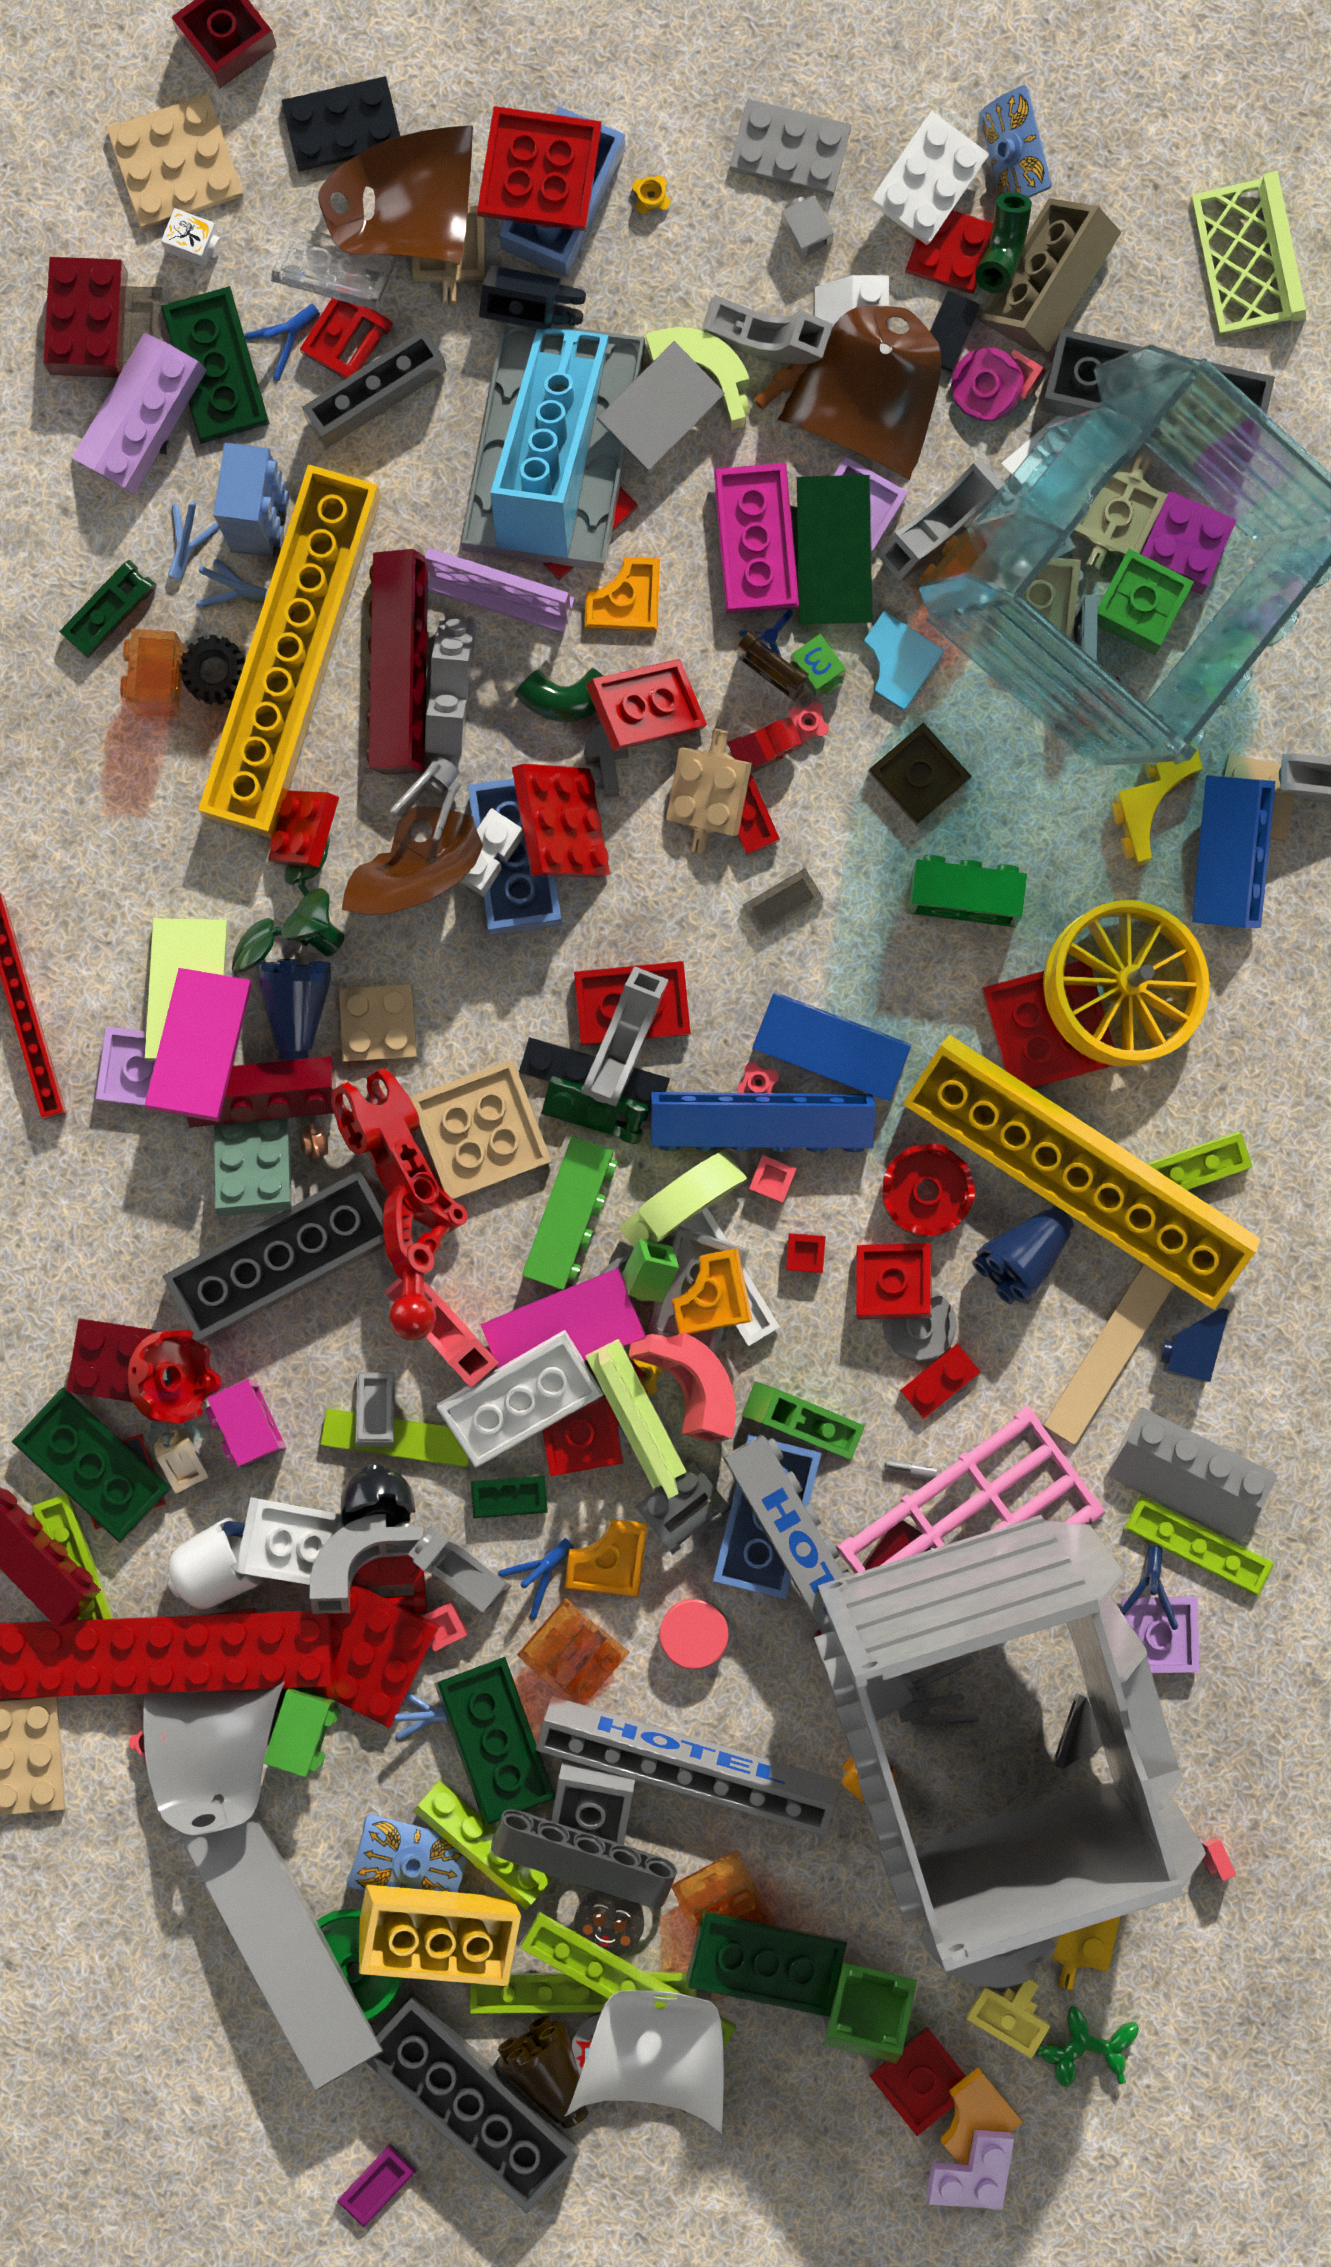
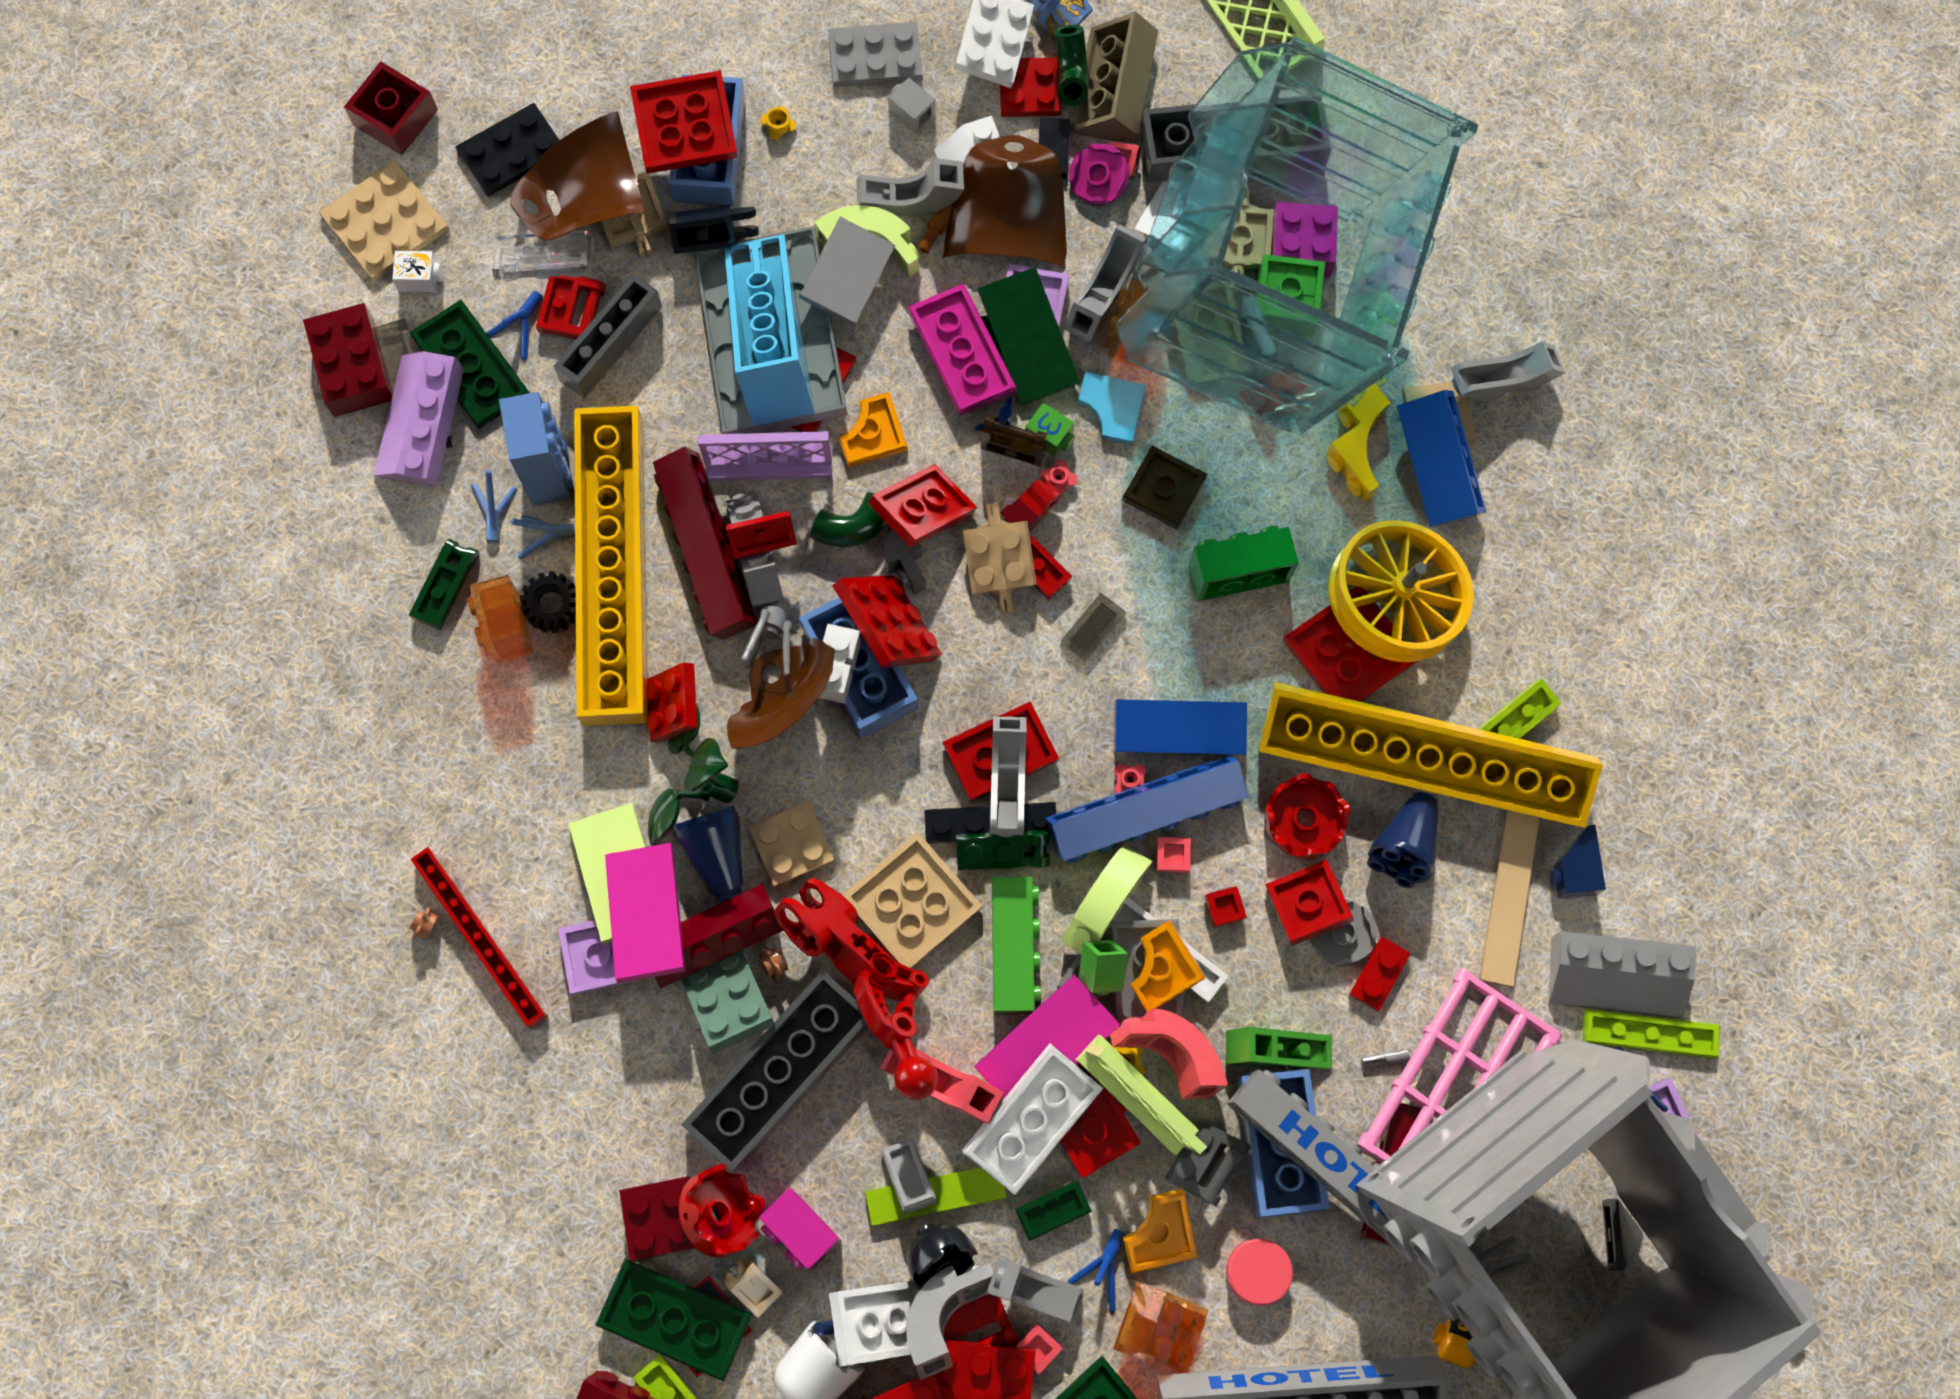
camera: 25 degrees left, 10 degrees down
(458, 680) = (761, 534): none -> red plate

